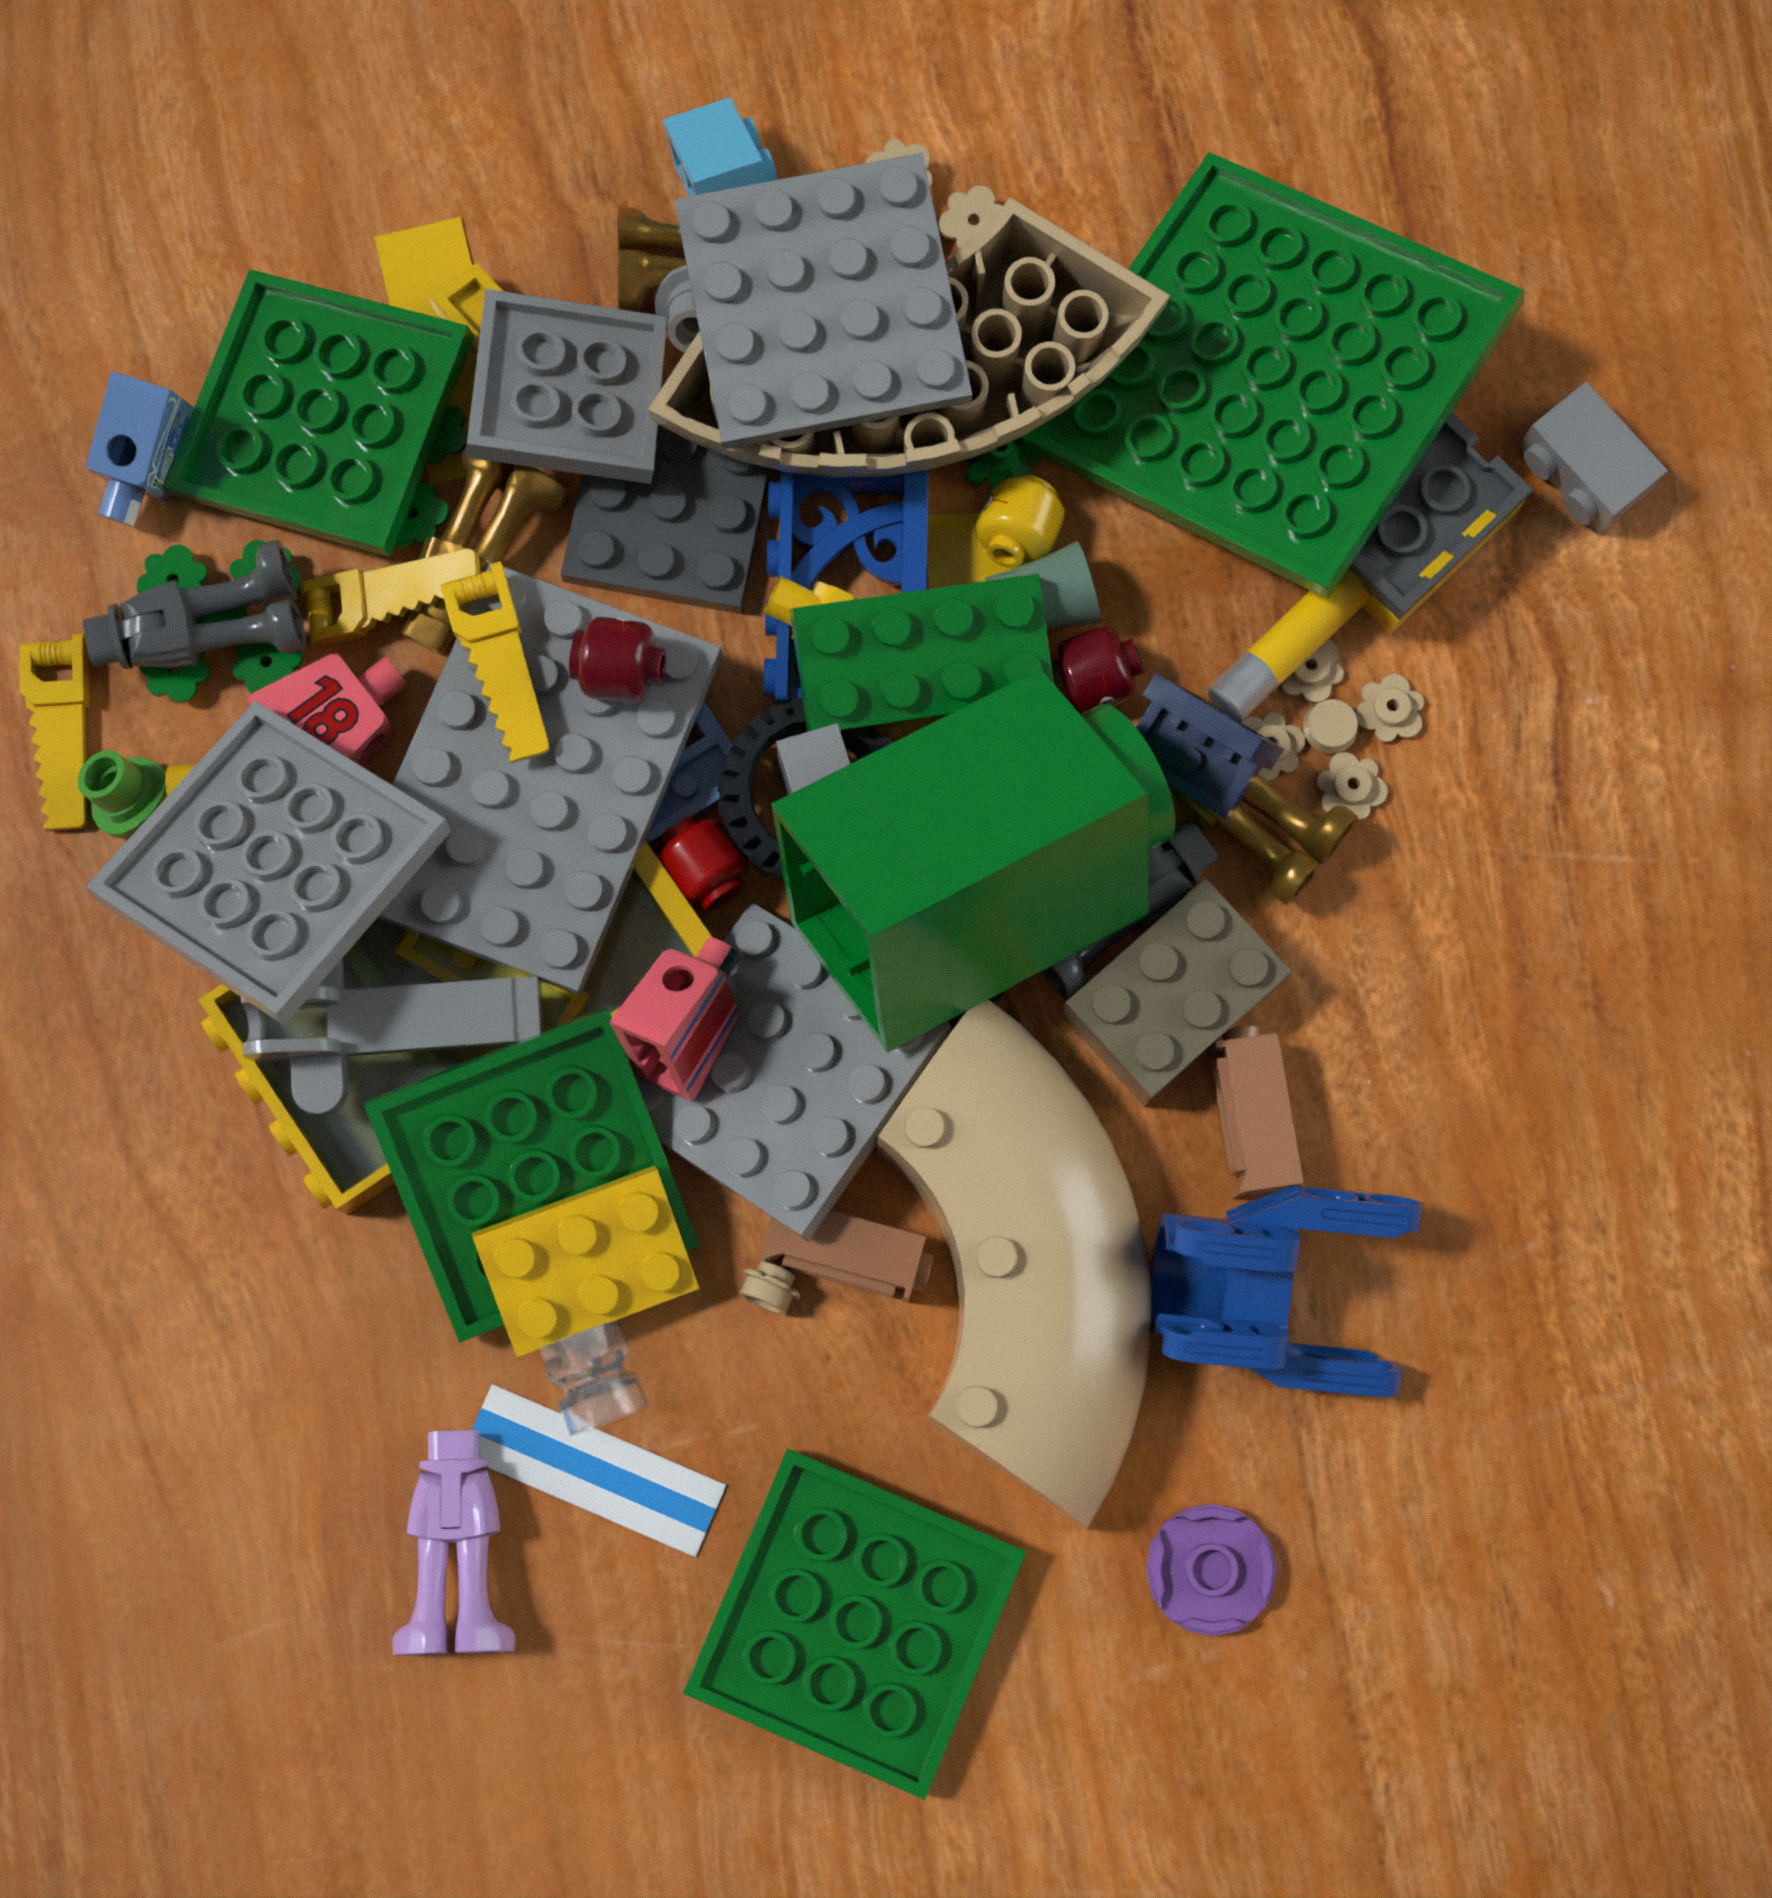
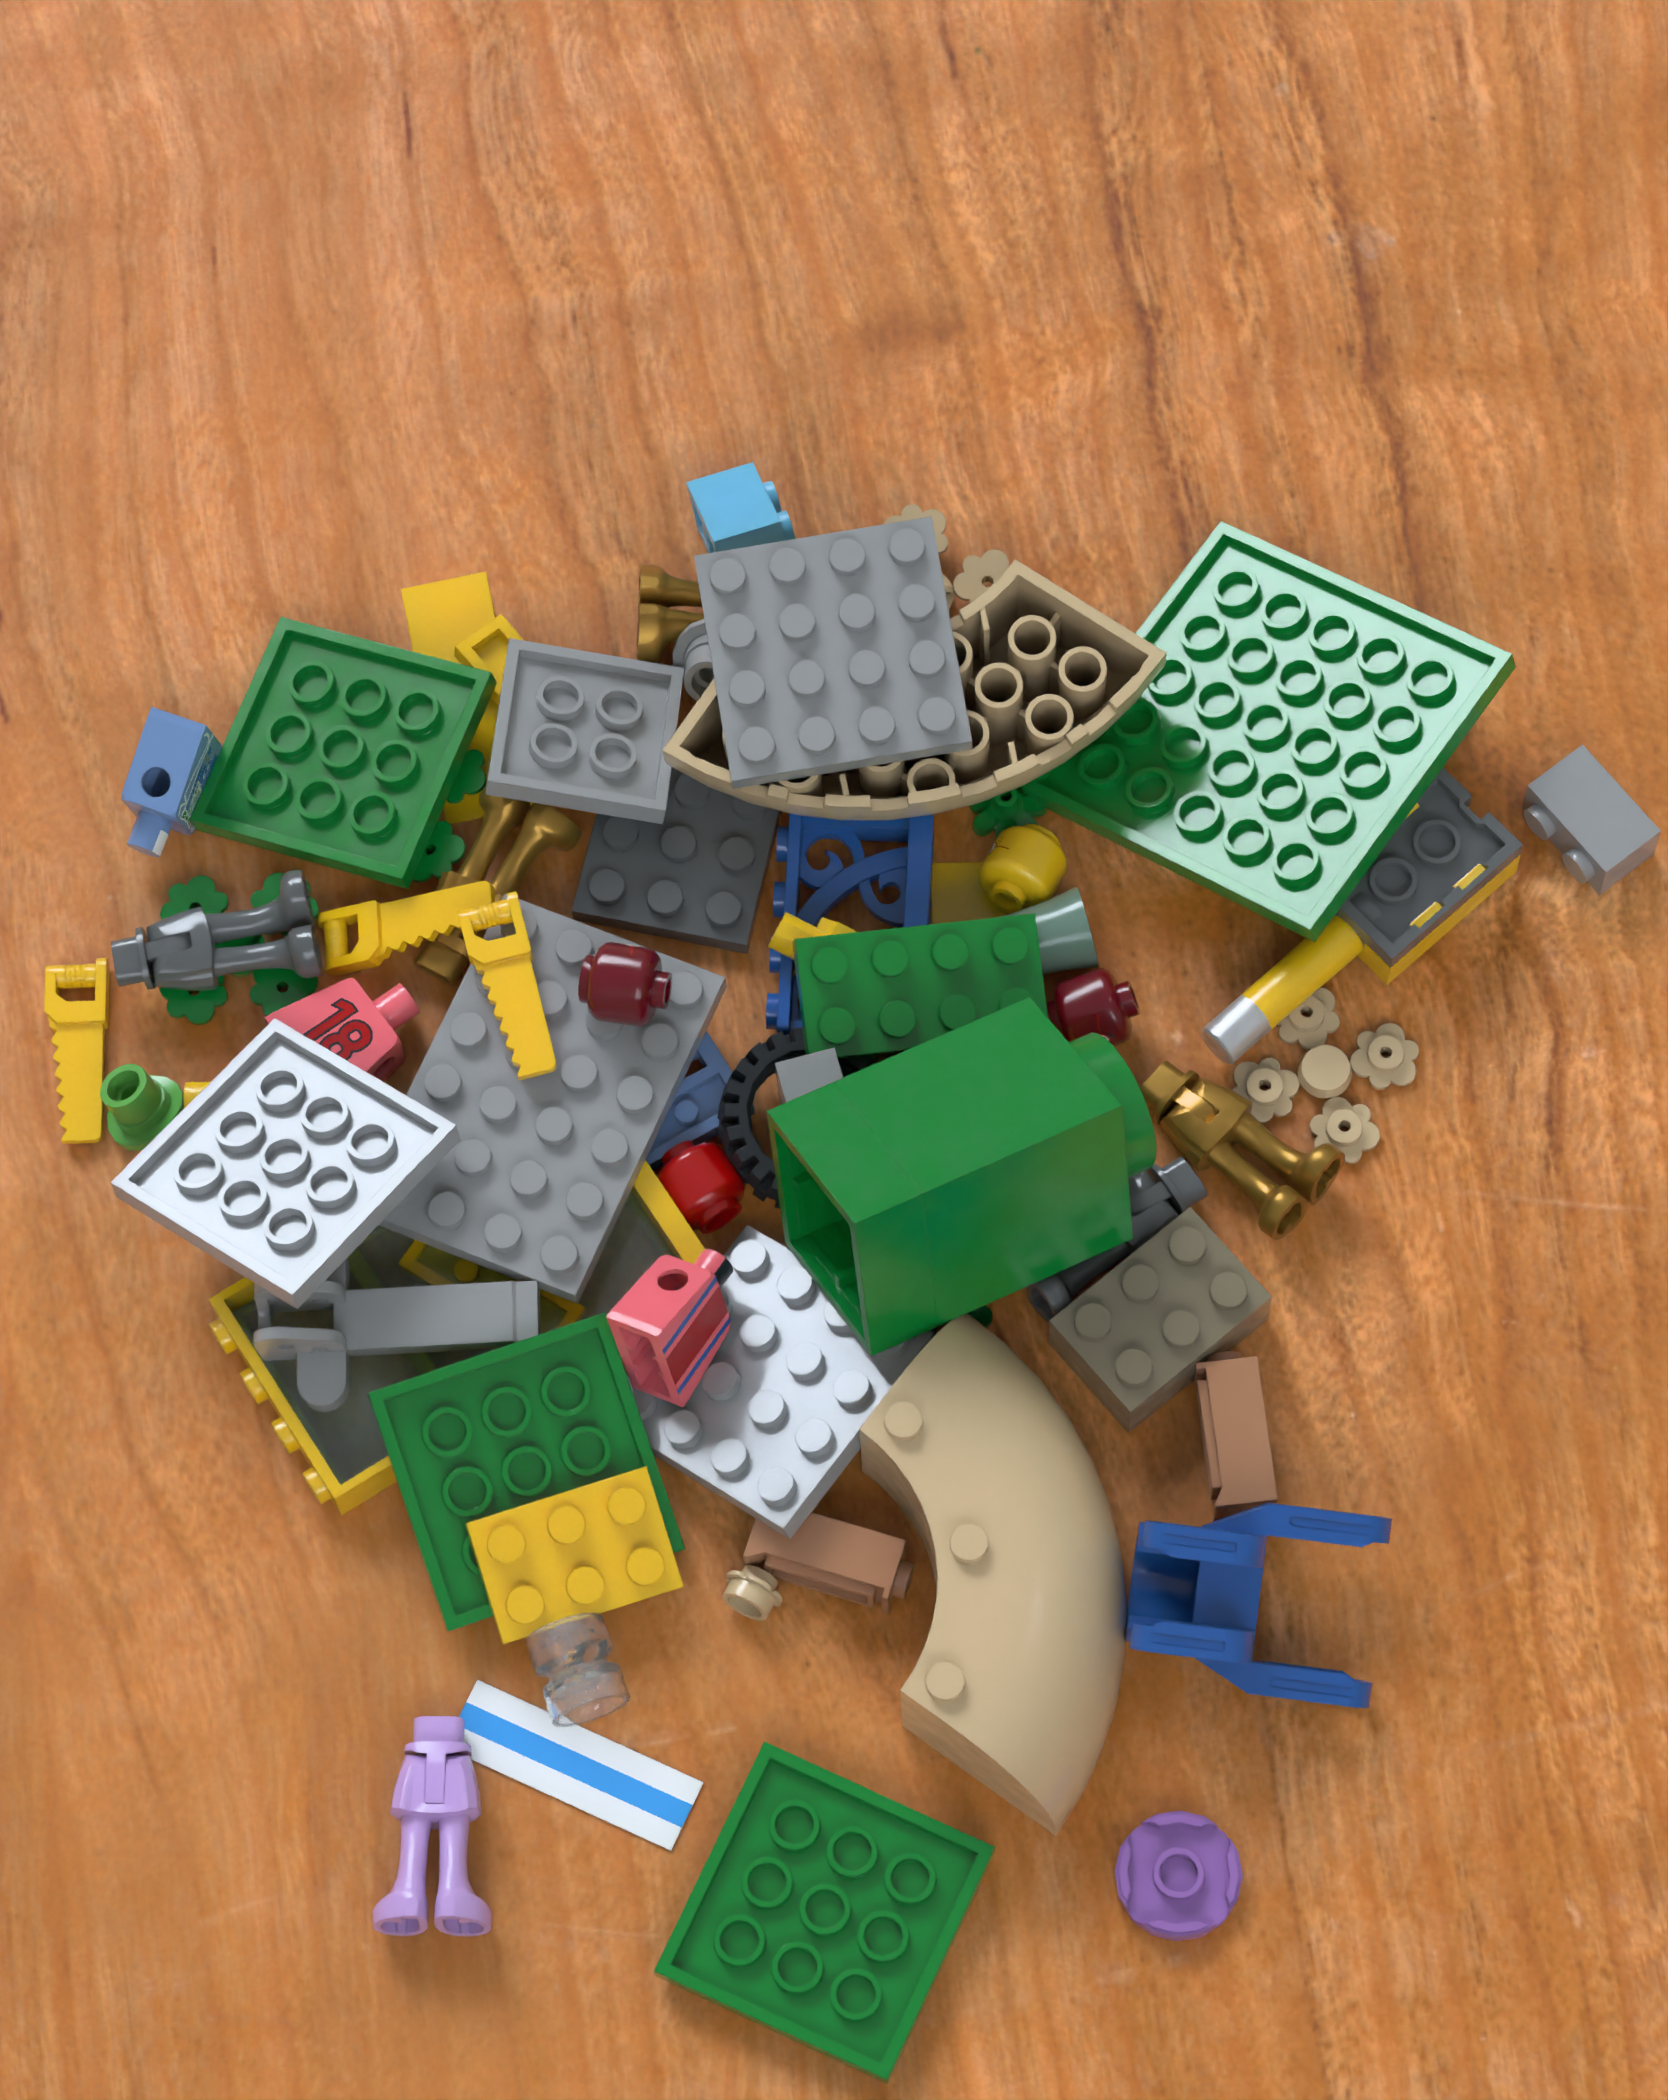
camera: 10 degrees right, 10 degrees down
(1203, 747) = (1190, 1081): dark blue bracket -> none

